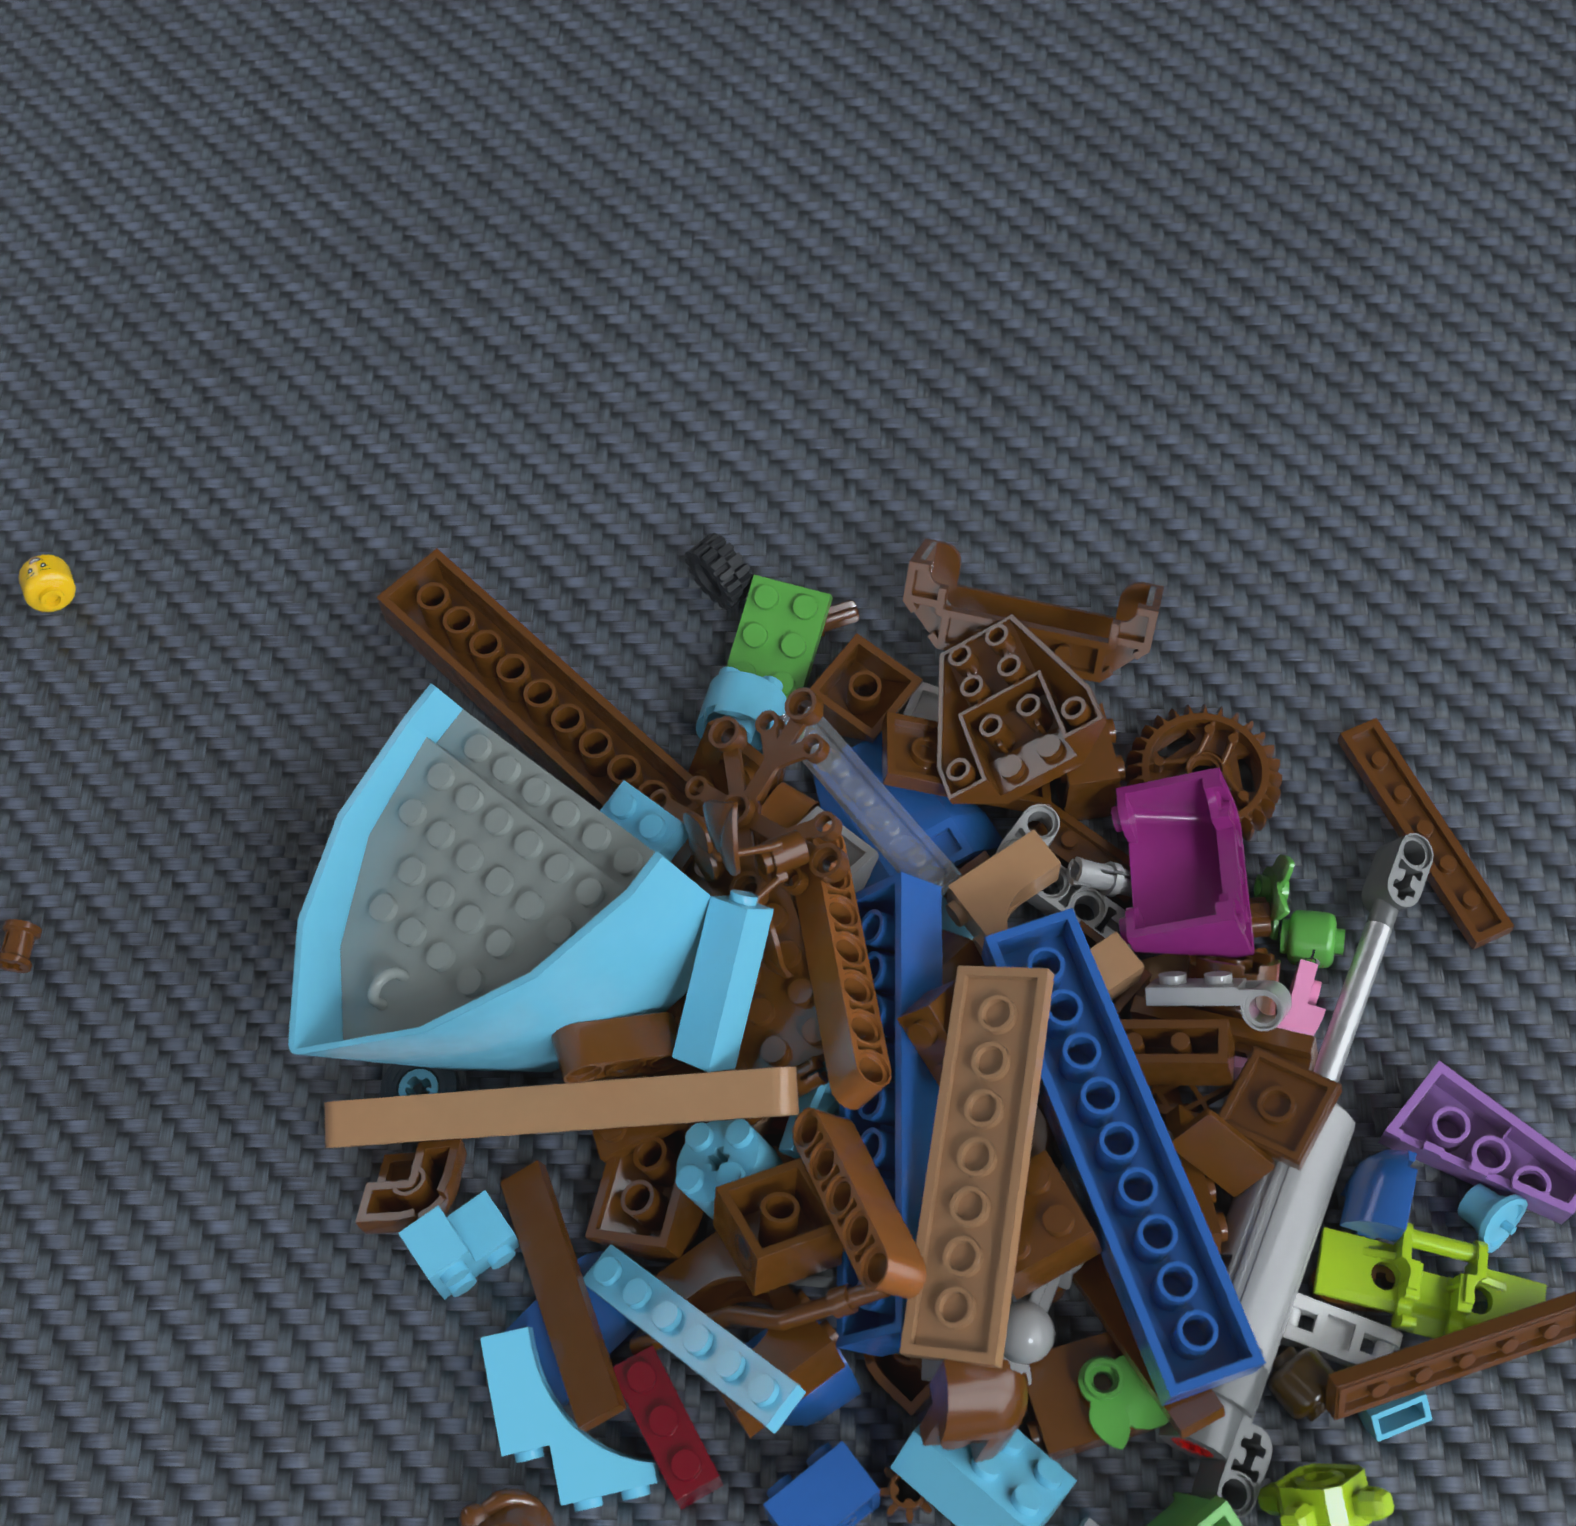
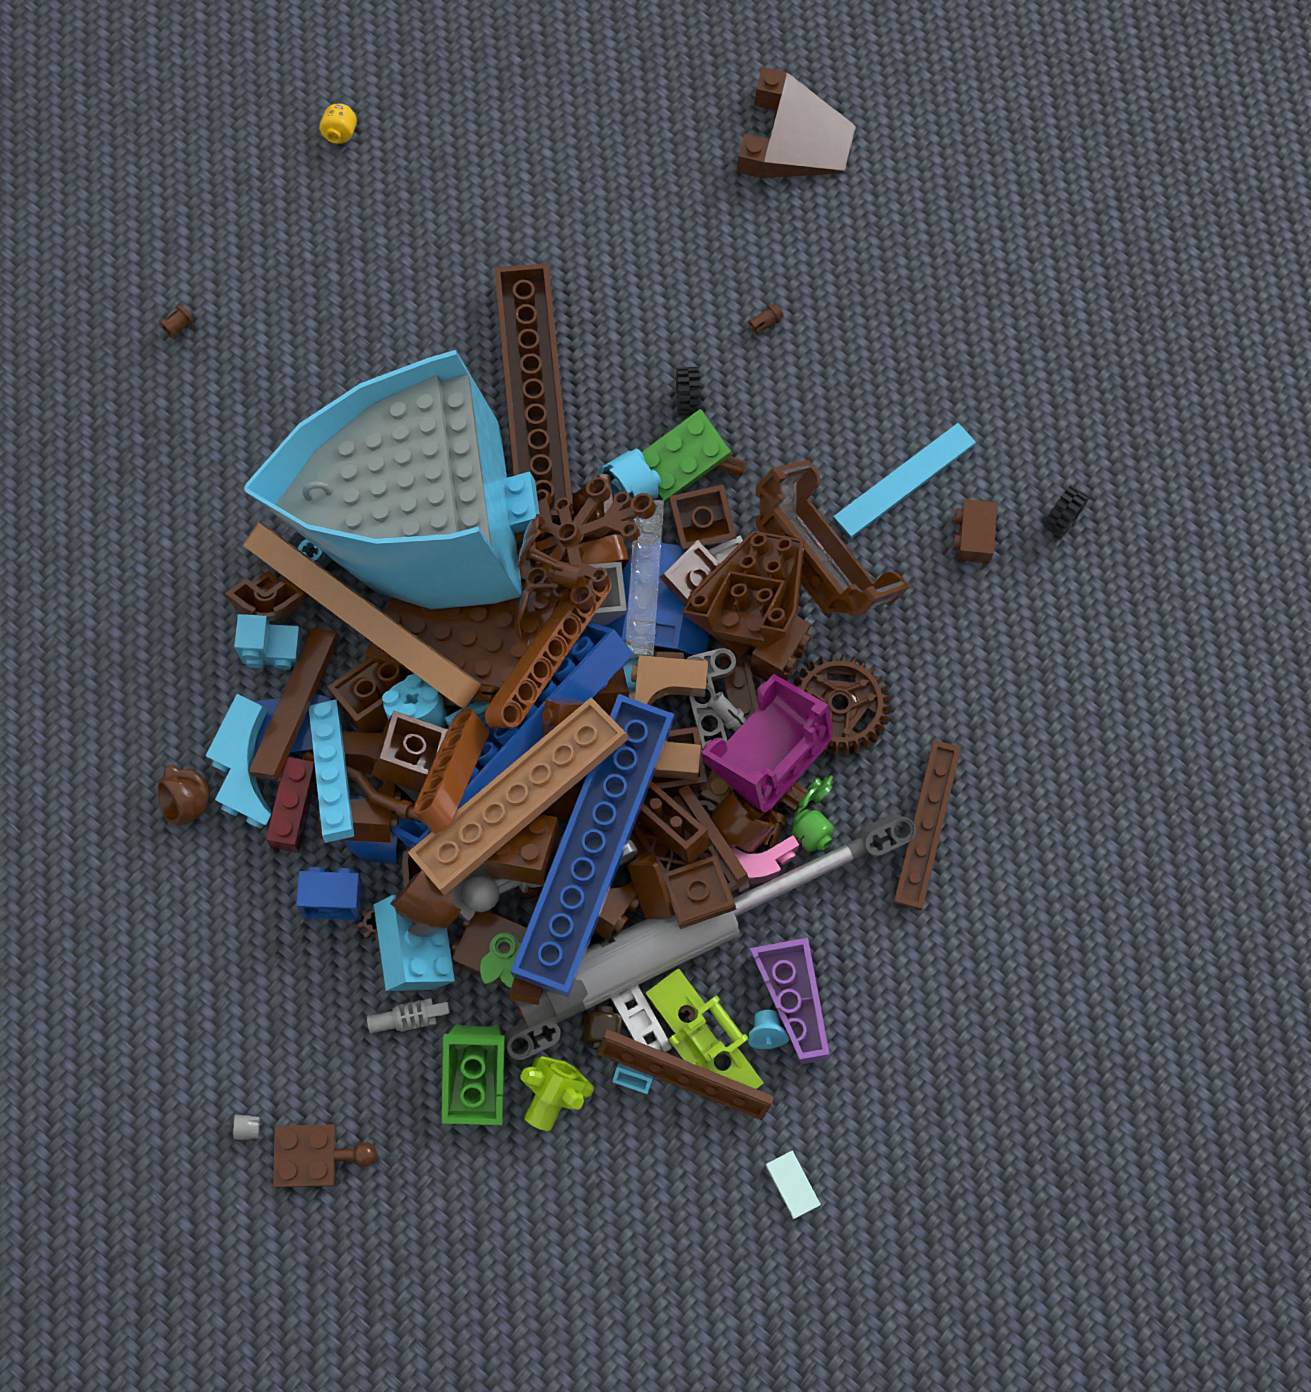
camera: 30 degrees right, 10 degrees up
(604, 233) = (805, 136): none -> wedge
(616, 1047) = (408, 607): reddish brown beam -> none
(723, 981) = (480, 615): medium azure brick -> none
(735, 431) = (766, 318): none -> reddish brown pin
(1037, 498) = (904, 481): none -> medium azure tile
(1165, 486) = (976, 531): none -> reddish brown brick
(1221, 989) = (725, 817): light grey plate -> none
(1241, 395) = (1066, 511): none -> black tyre
(1380, 1195) = (719, 974): blue brick -> none

